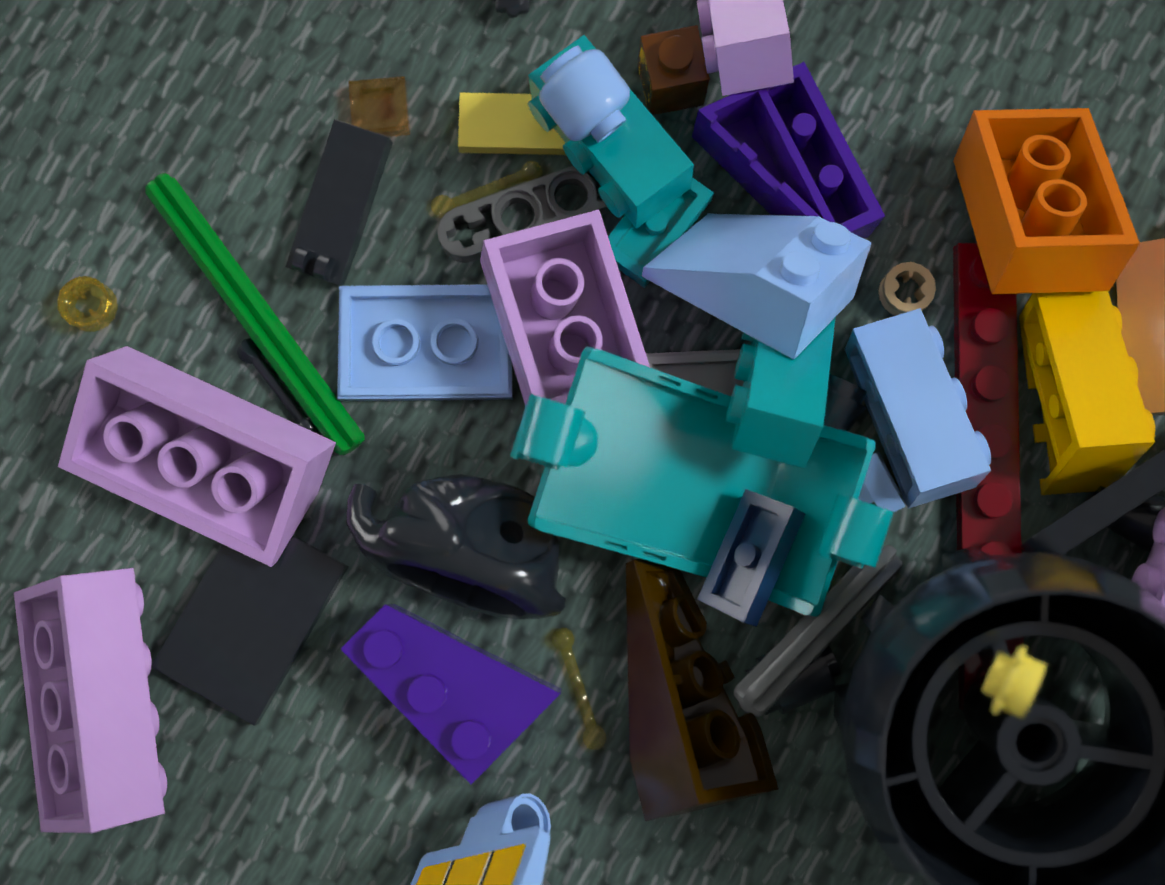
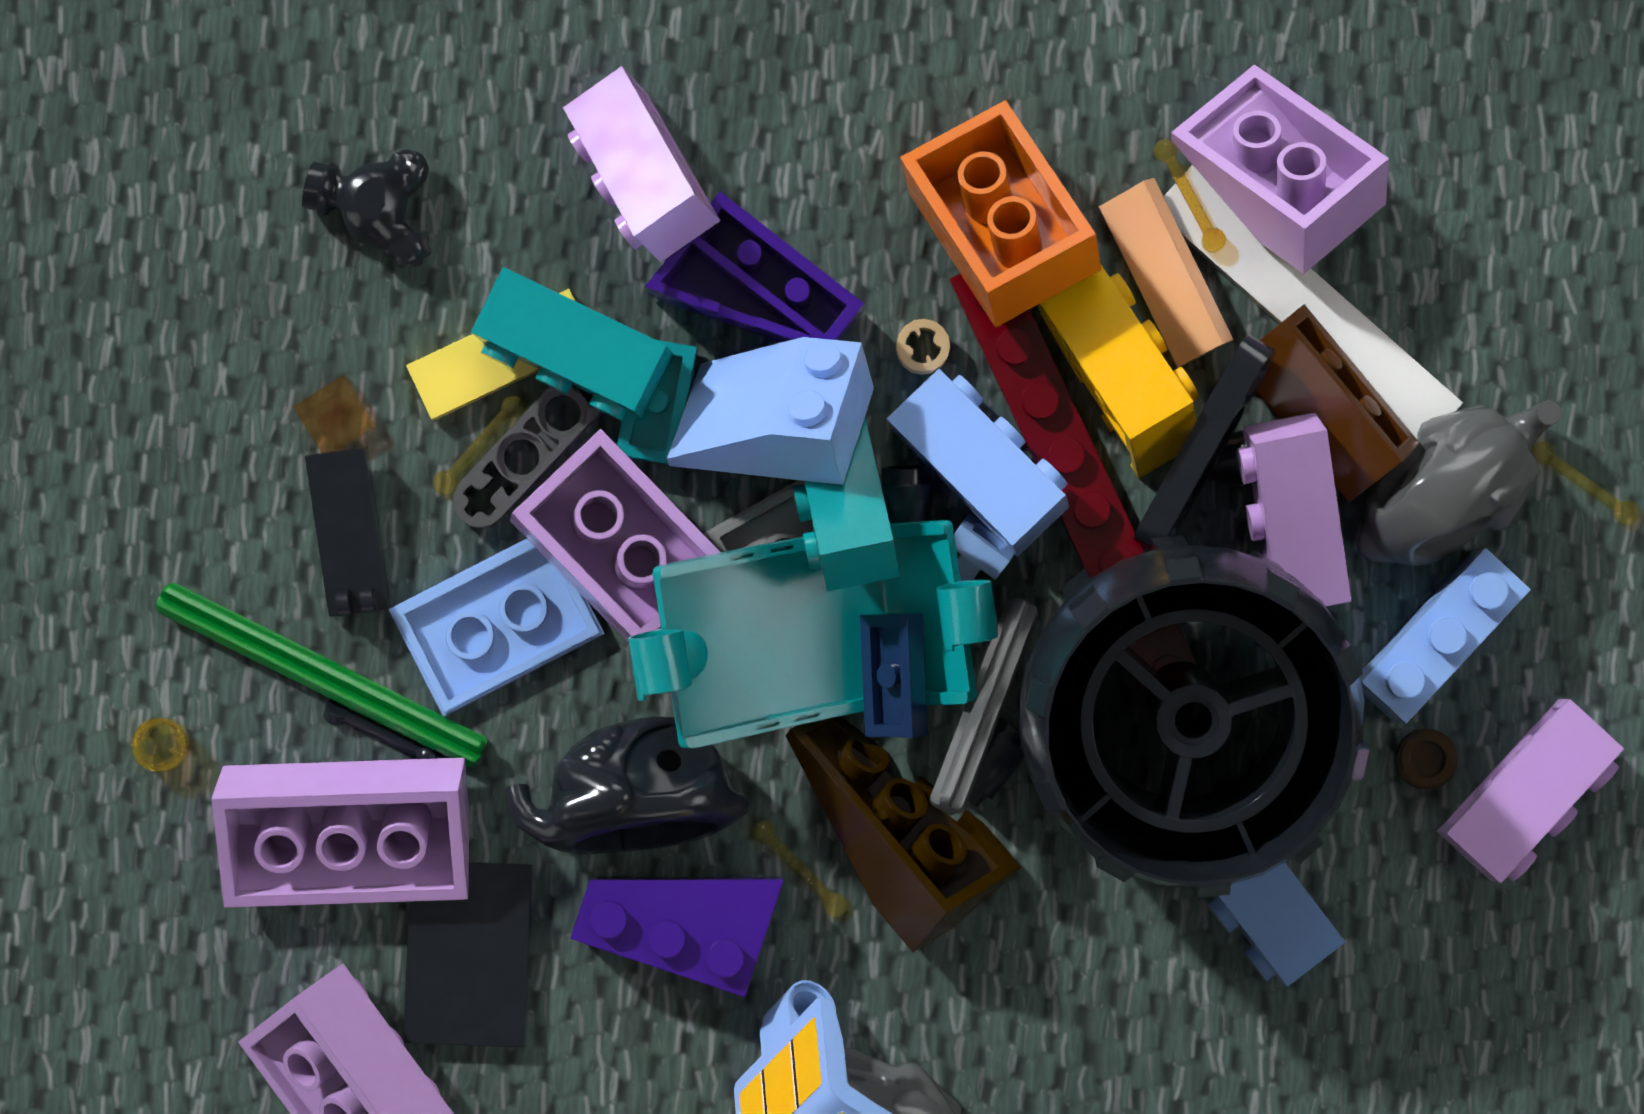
camera: 25 degrees left, 5 degrees up
(584, 94) = (537, 336): light blue head -> none
(673, 70) = (598, 247): reddish brown brick -> none
(1013, 682) = (1126, 689): light yellow plate -> none

